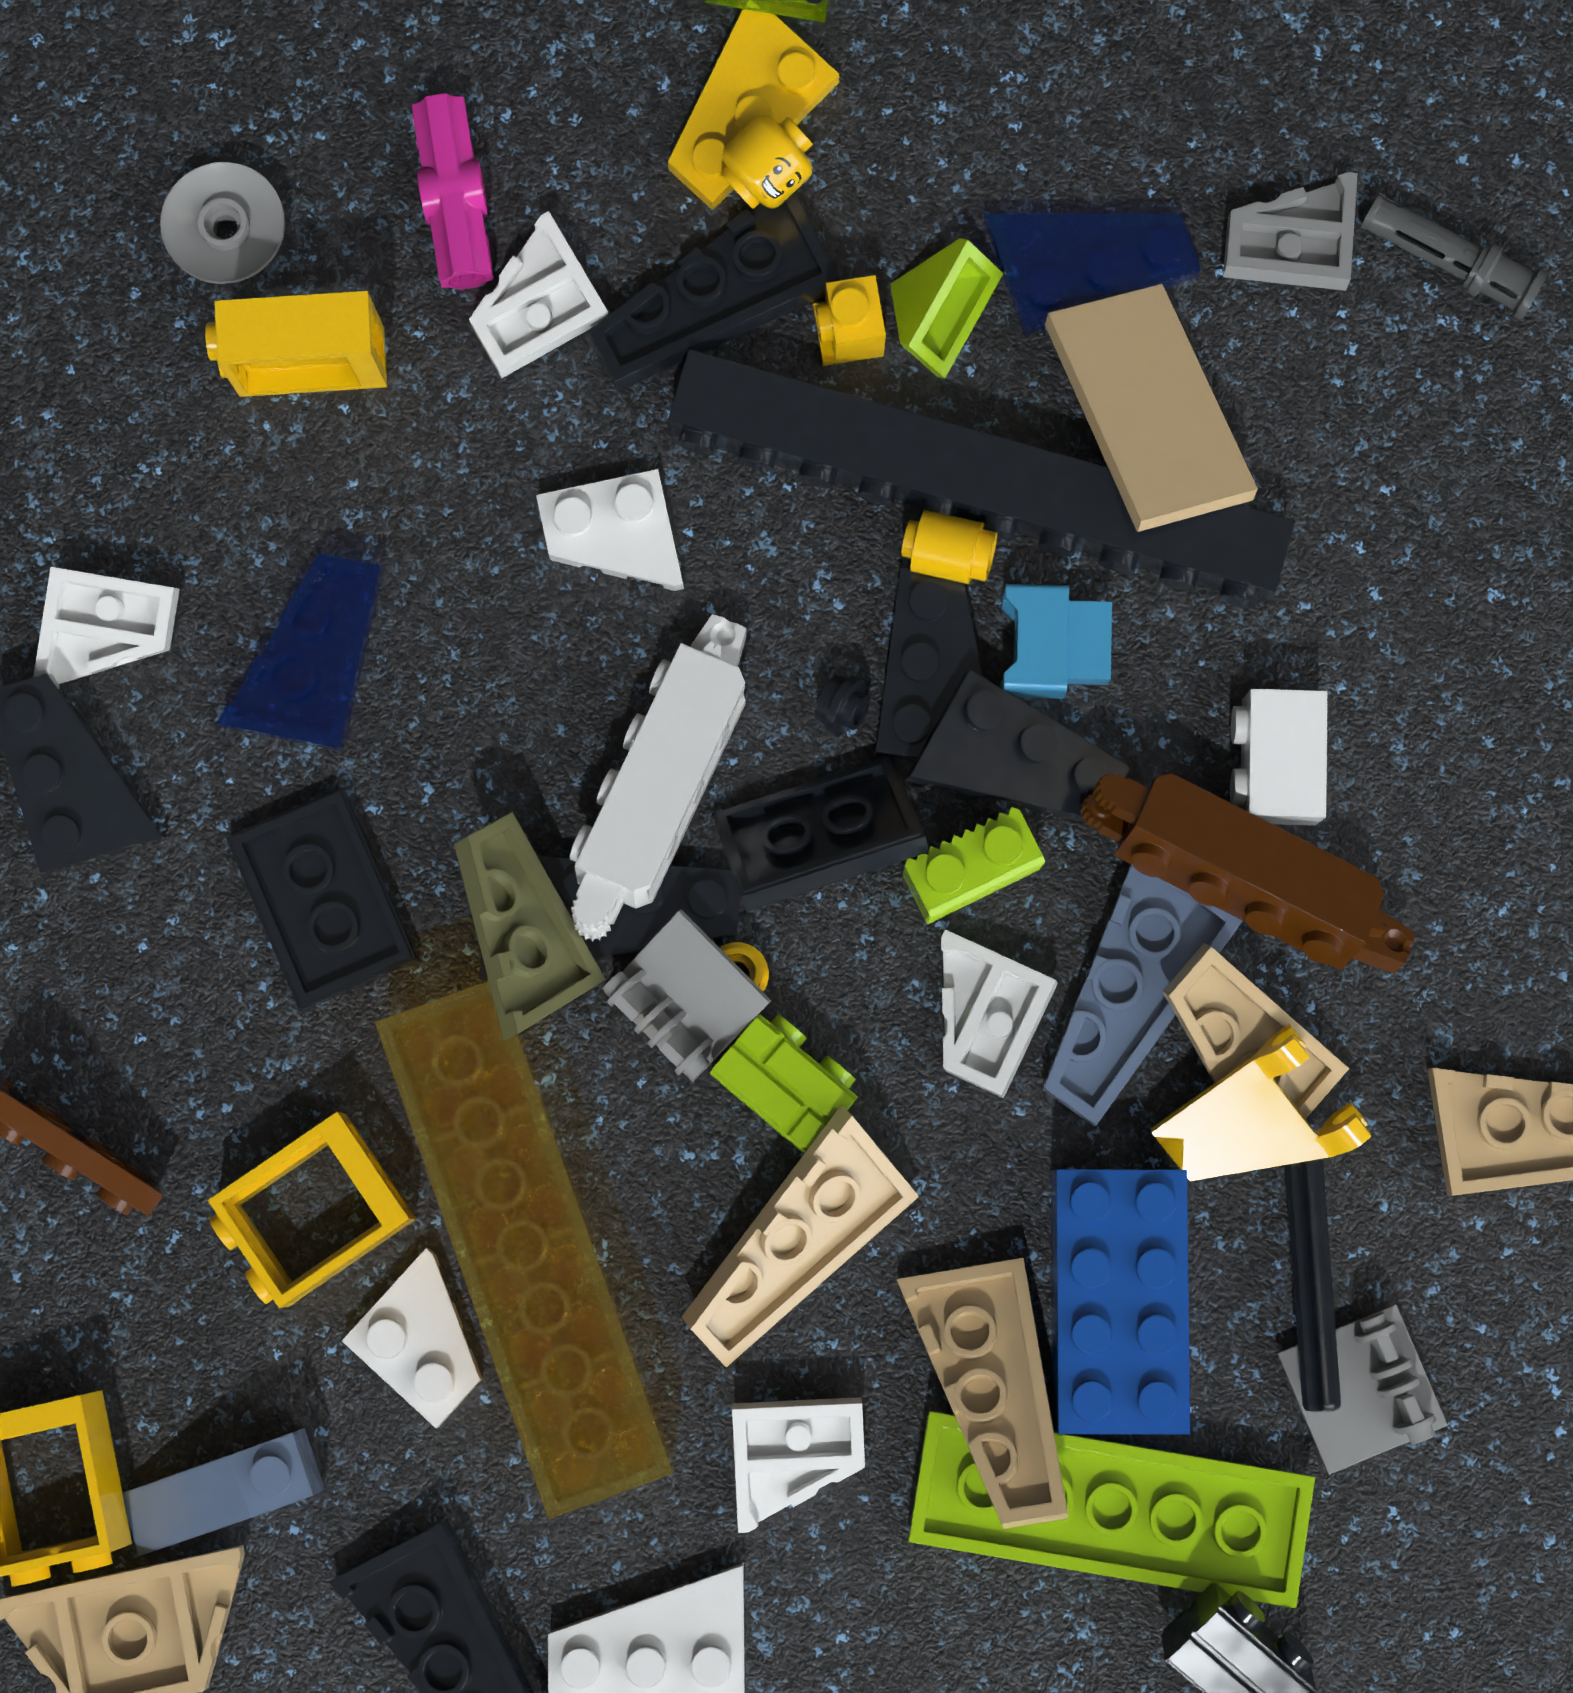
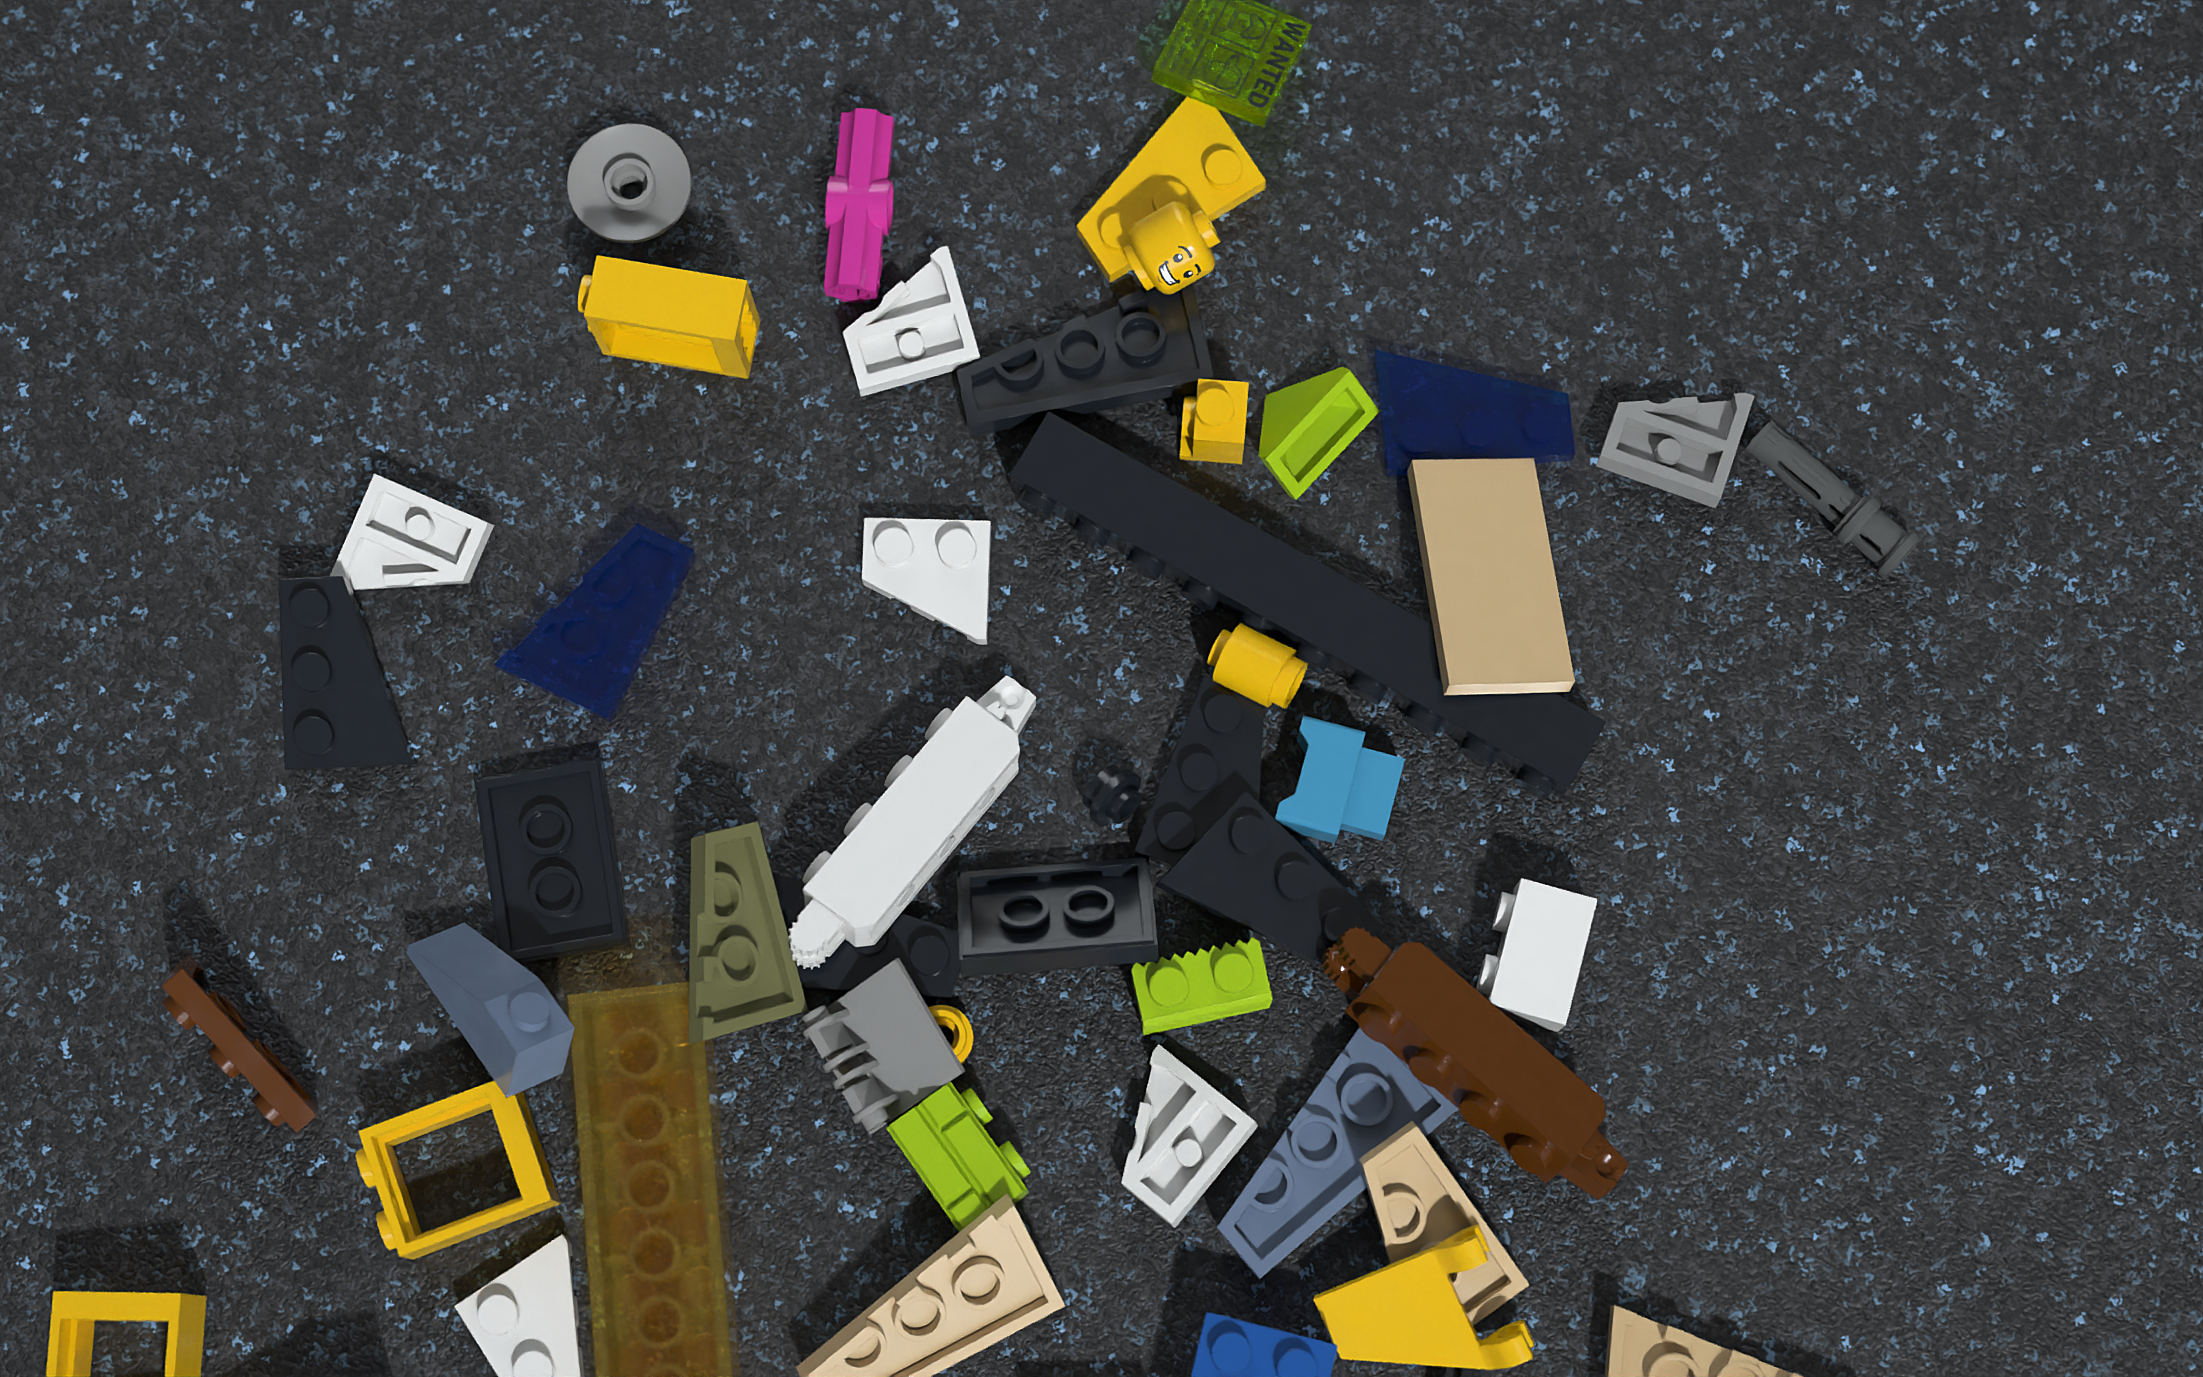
camera: 15 degrees right, 5 degrees down
(307, 1049) = (496, 1007): none -> sand blue slope

